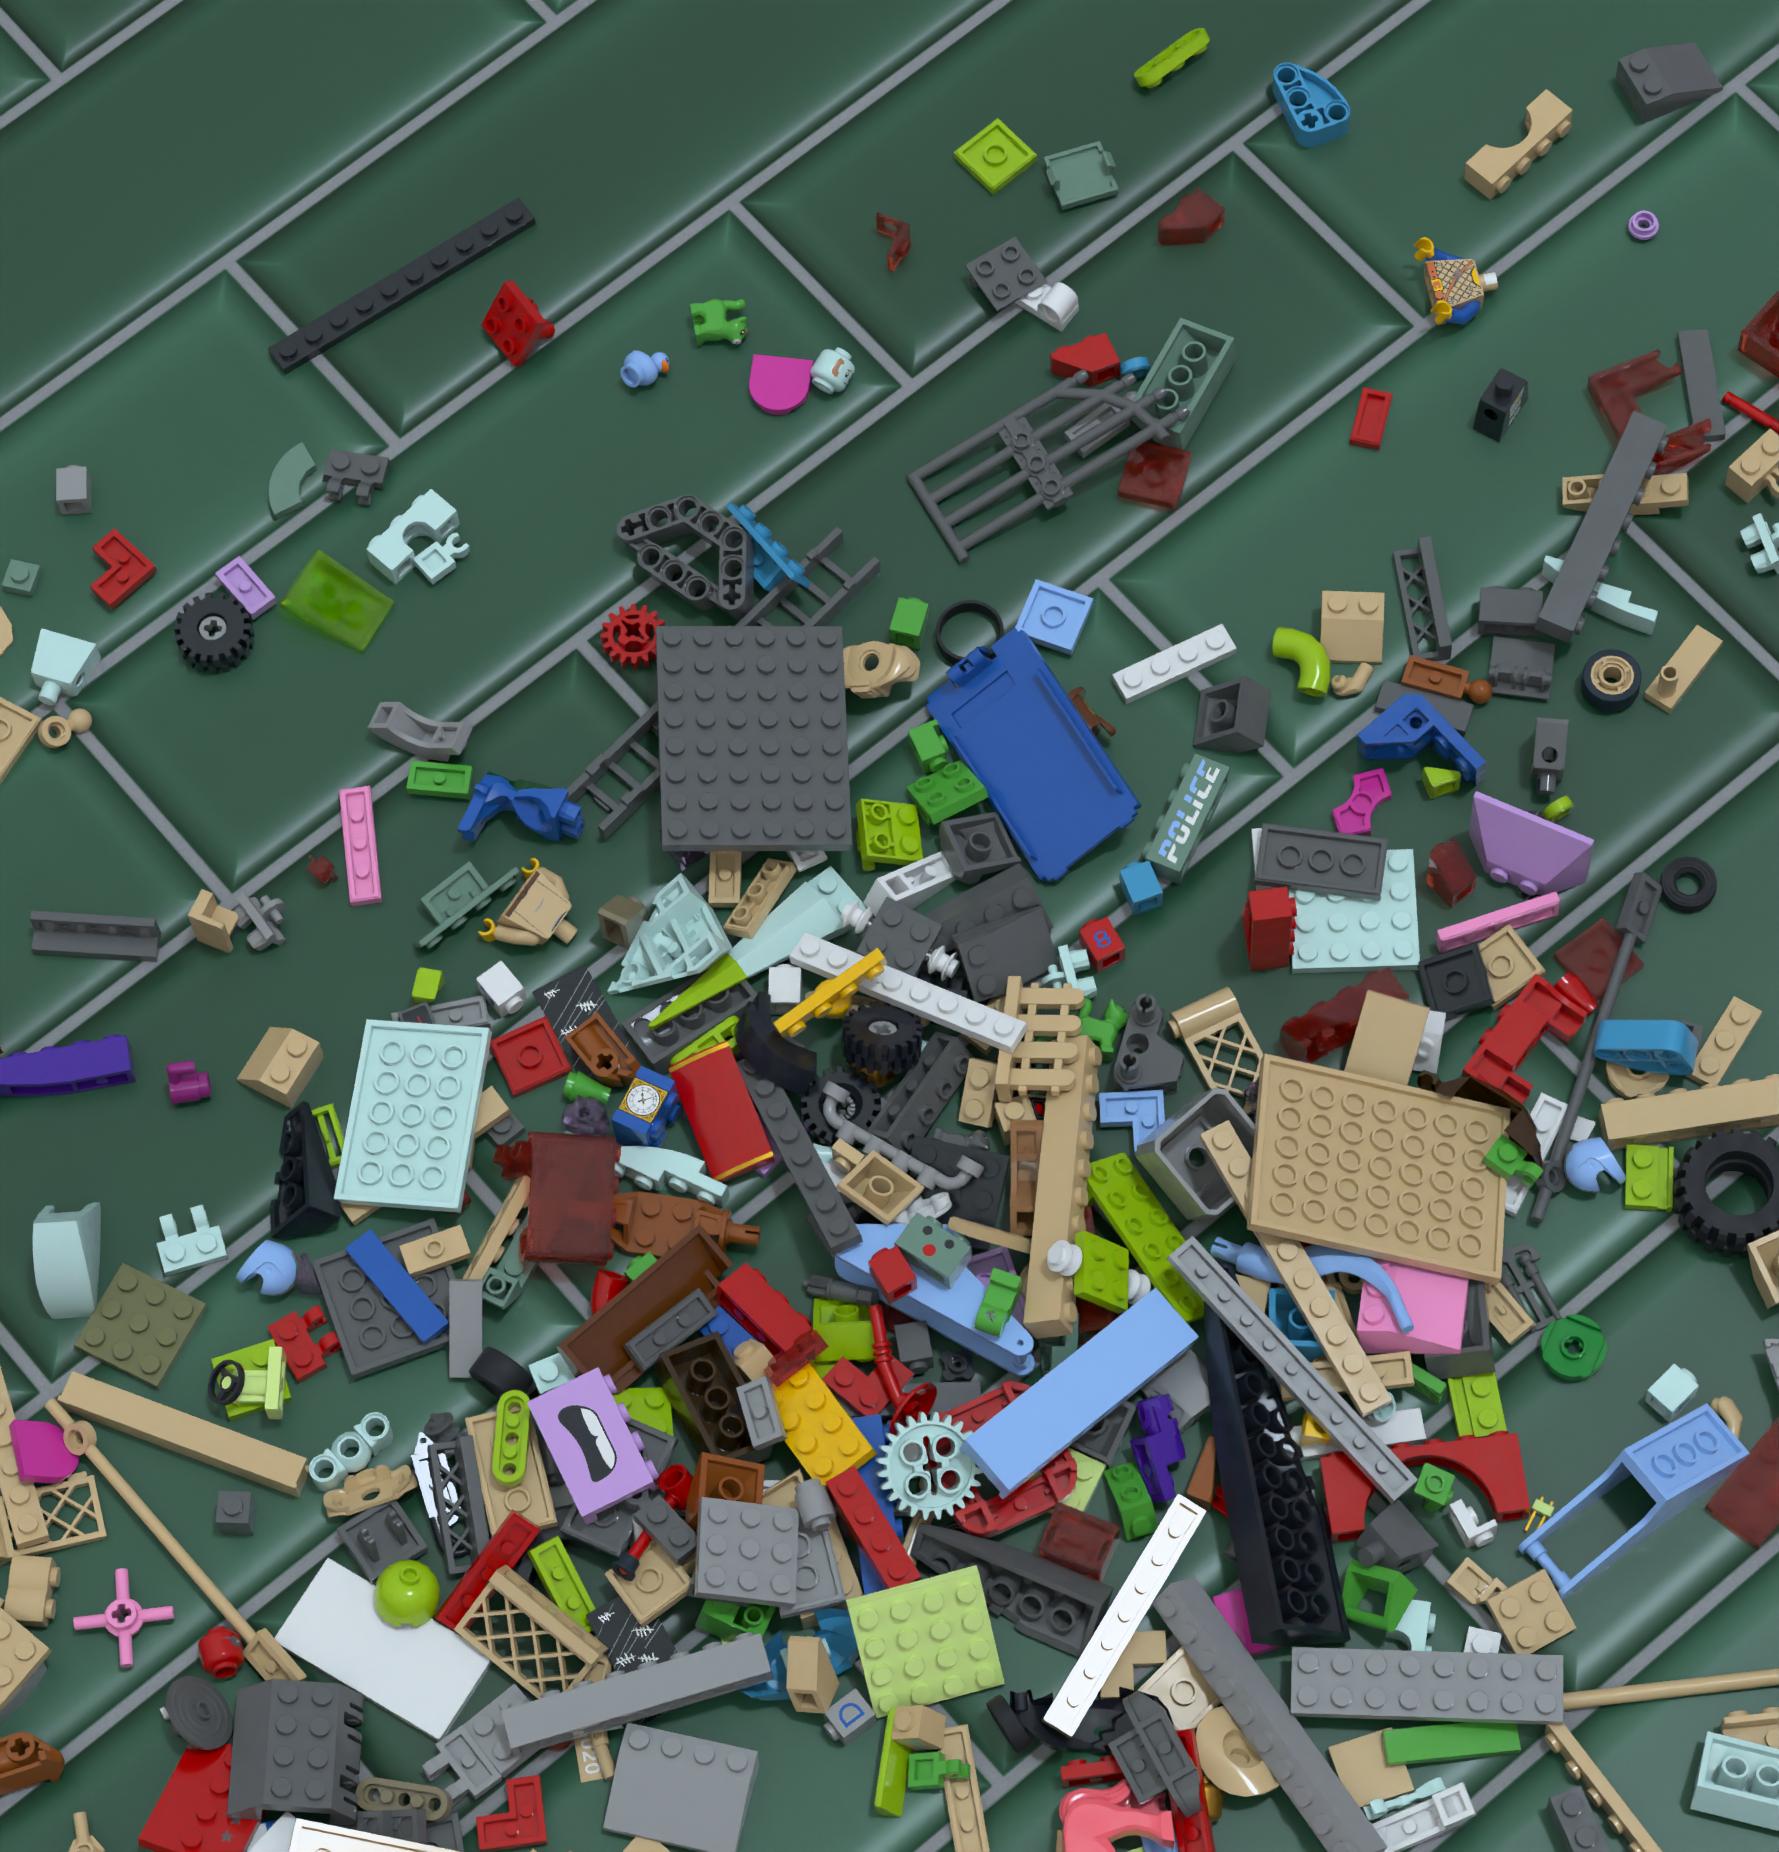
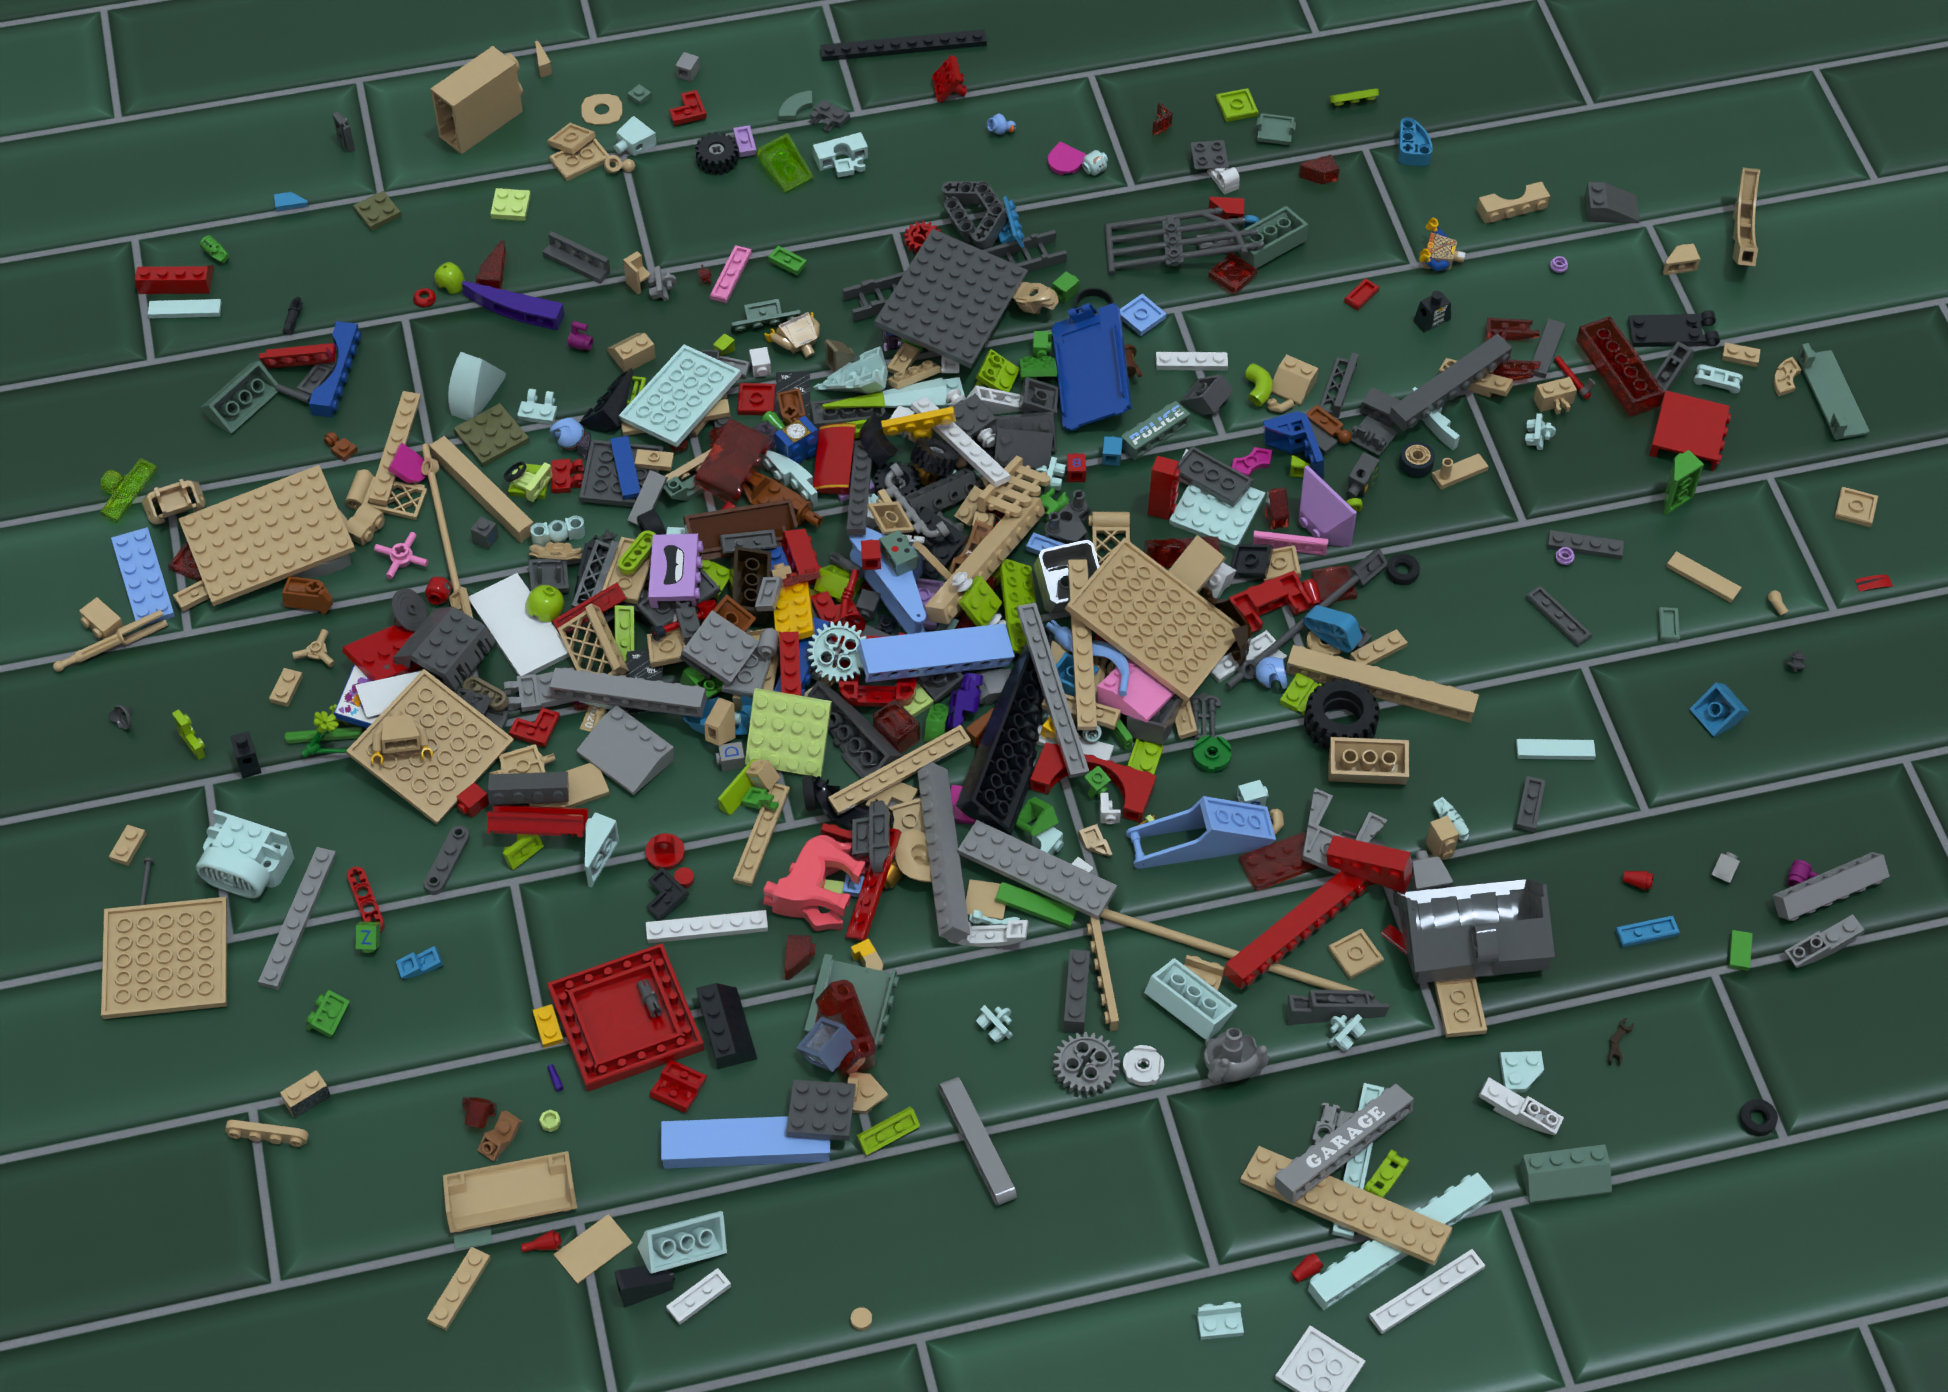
camera: 20 degrees right, 10 degrees down
(418, 734) = (788, 235): light grey arch -> none
(536, 805) = (827, 288): blue hips -> none
(714, 319) = (1048, 120): bright green animal -> none
(998, 1302) = (917, 590): bright green leg -> none
(1395, 1540) = (1063, 796): dark grey torso -> none
(1507, 1159) = (1228, 648): bright green plate -> none
(1530, 1613) = (1114, 863): tan plate -> none

